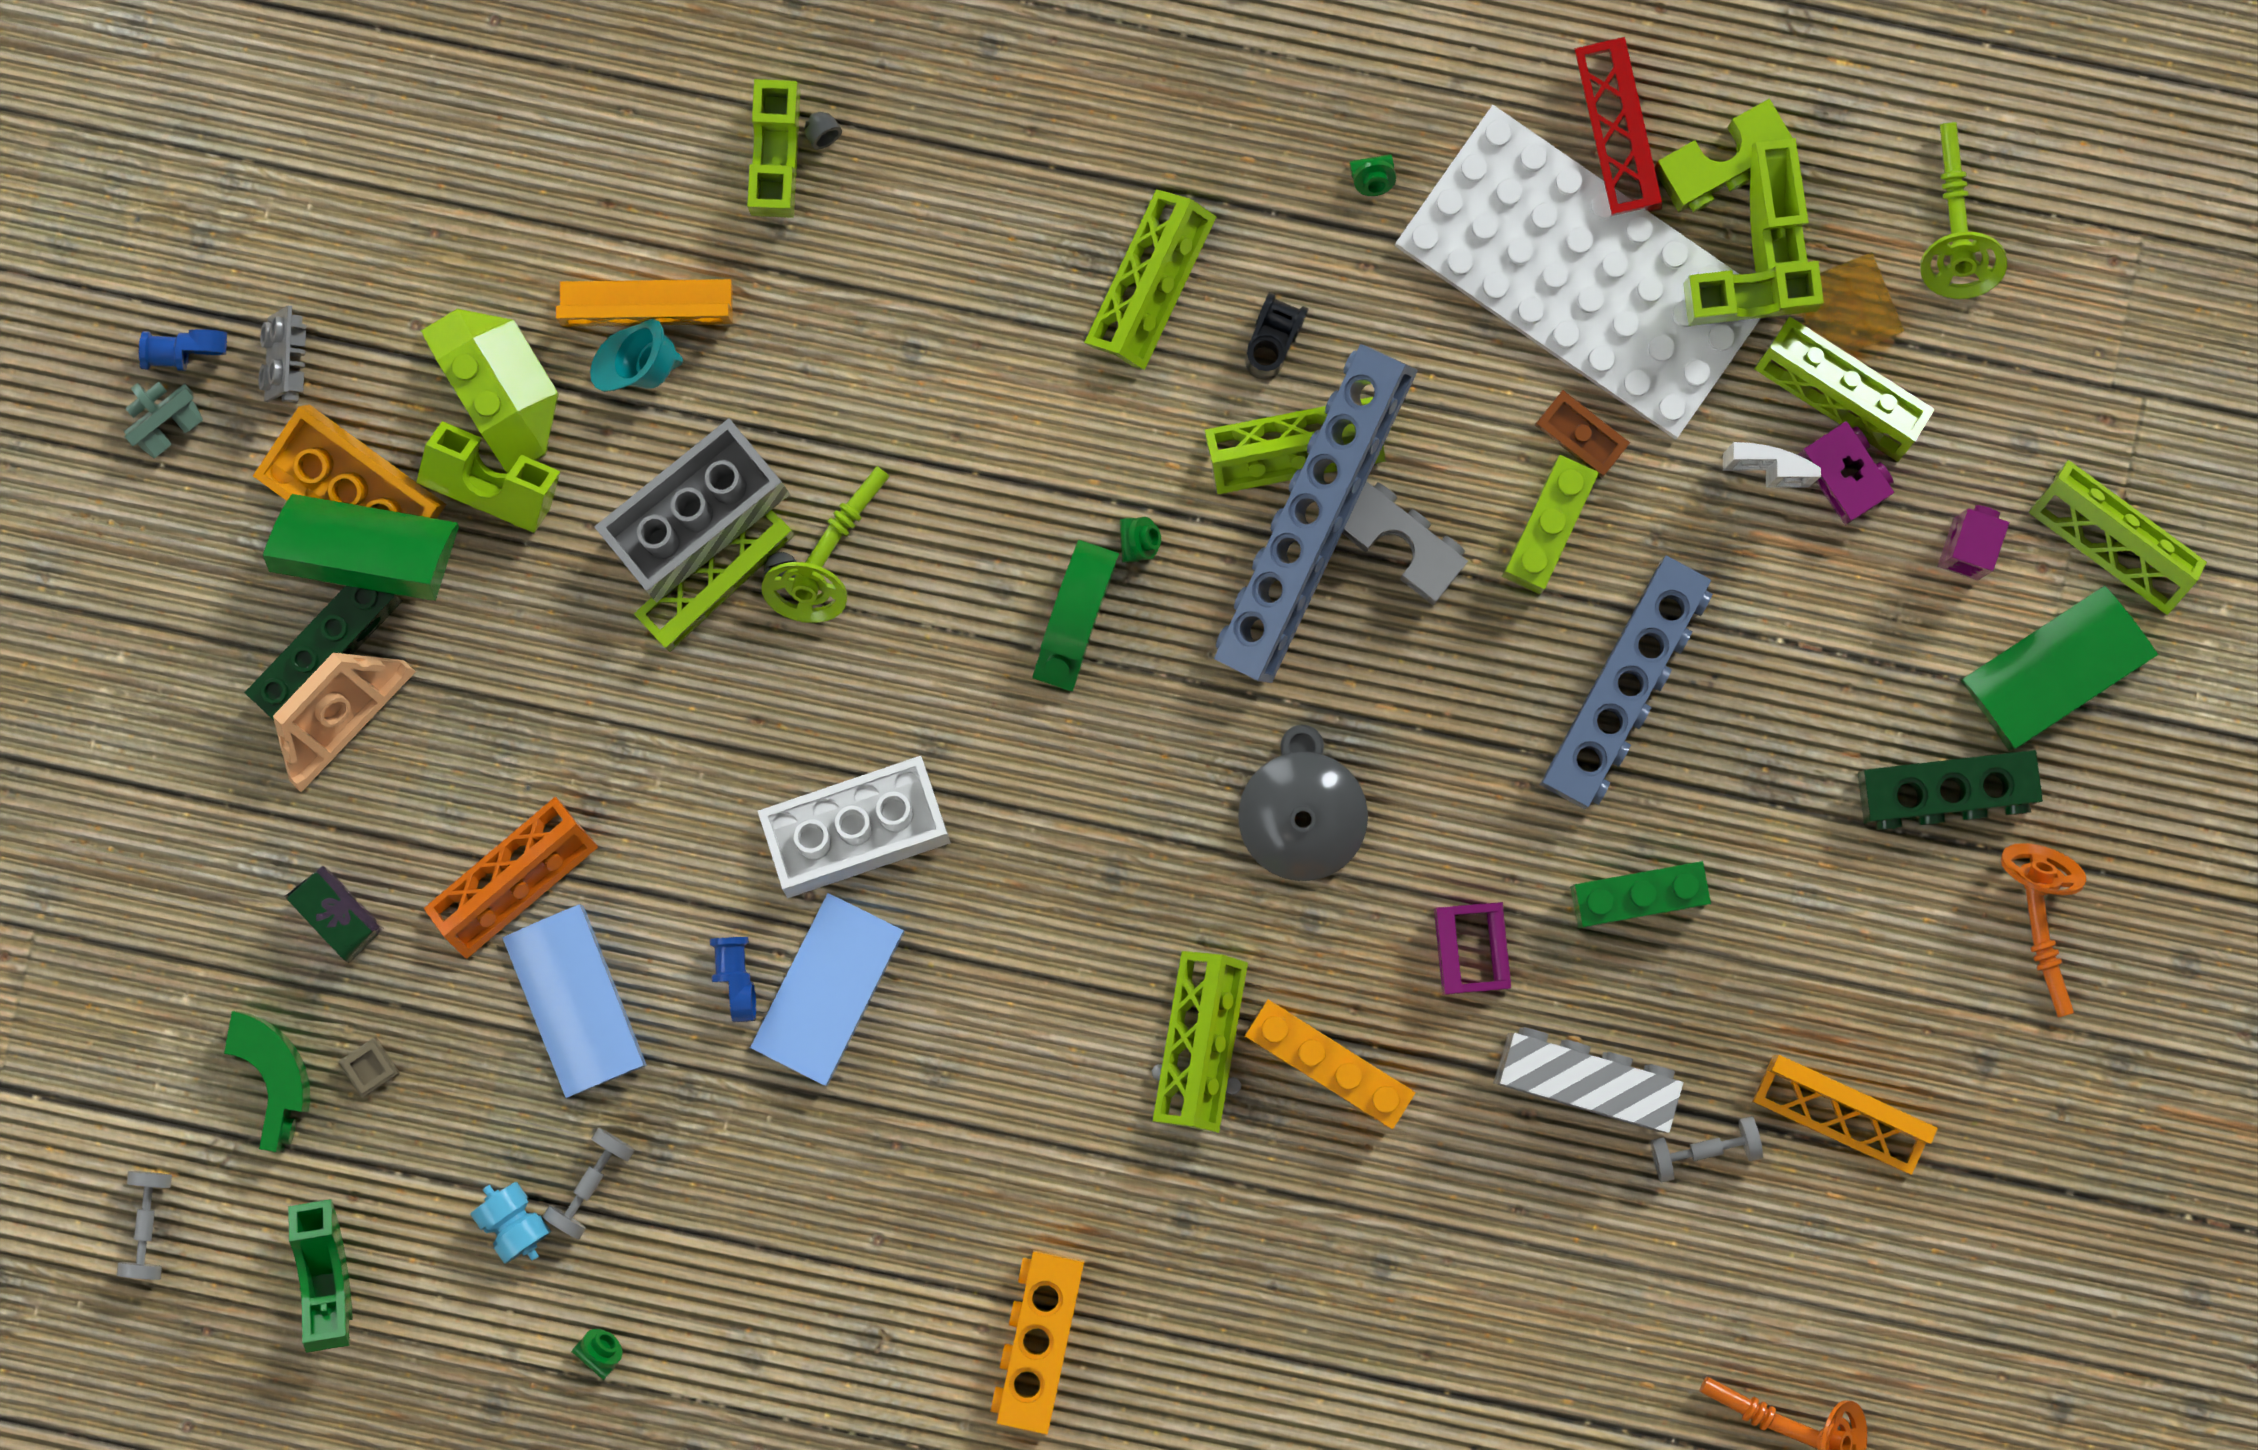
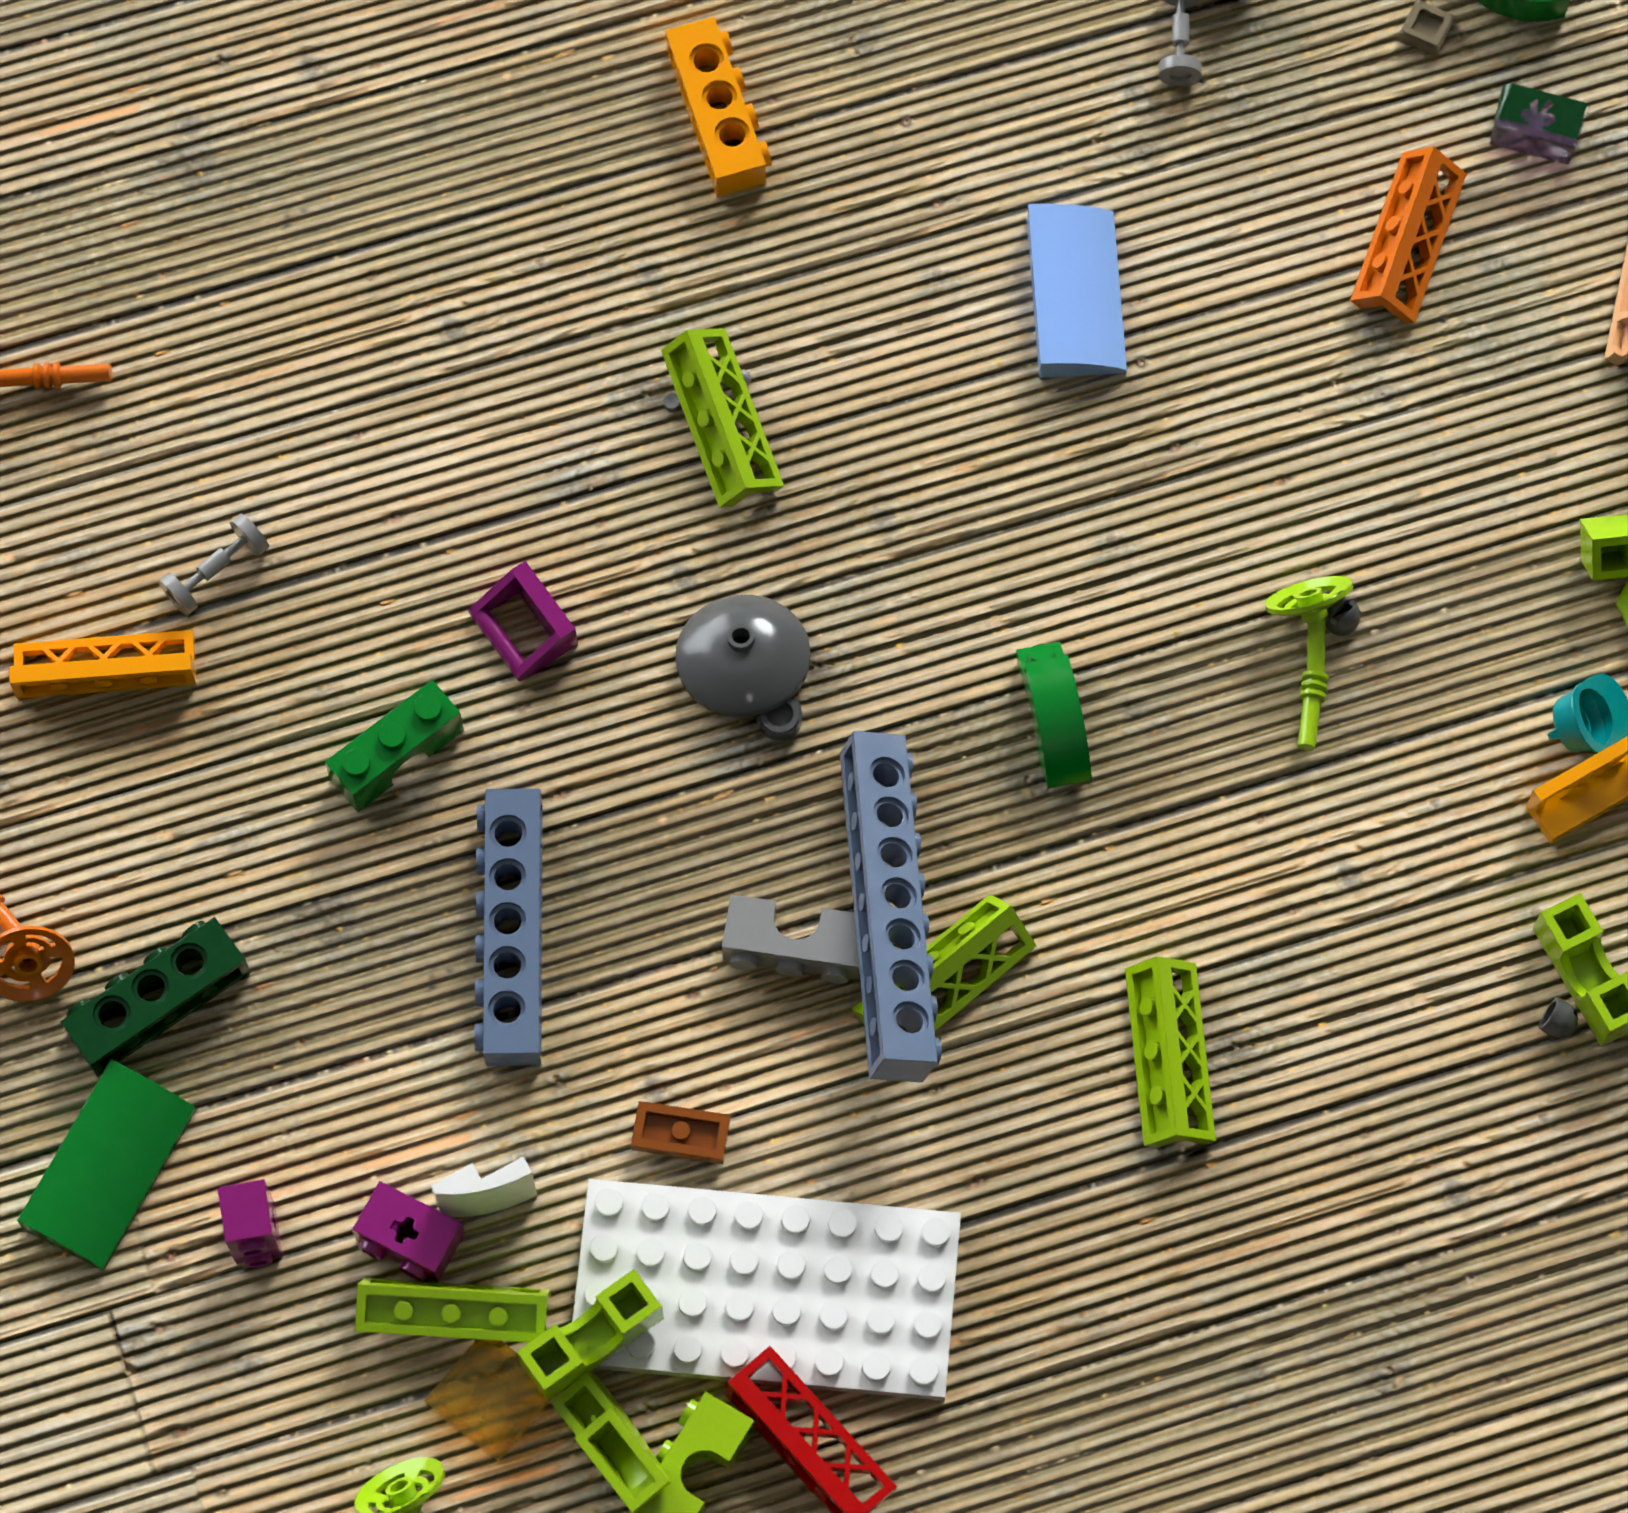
camera: 150 degrees right, 15 degrees down
(574, 1000) = (1286, 169): light blue slope -> none
(692, 510) = (1453, 610): light grey brick -> none
(719, 588) = (1386, 566): lime fence -> none
(731, 969) = (1149, 245): blue connector -> none
(853, 827) = (1138, 433): white slope -> none
(1139, 539) = (1036, 814): green plate -> none
(1275, 329) = (1024, 1069): black piece -> none
(1329, 1064) = (638, 453): light orange arch -> none
(1373, 175) = (1019, 1267): green plate -> none
(1550, 524) = (664, 1028): lime arch -> none
(1589, 1082) = (353, 554): brick -> none
(2125, 525) = (109, 1325): lime fence -> none

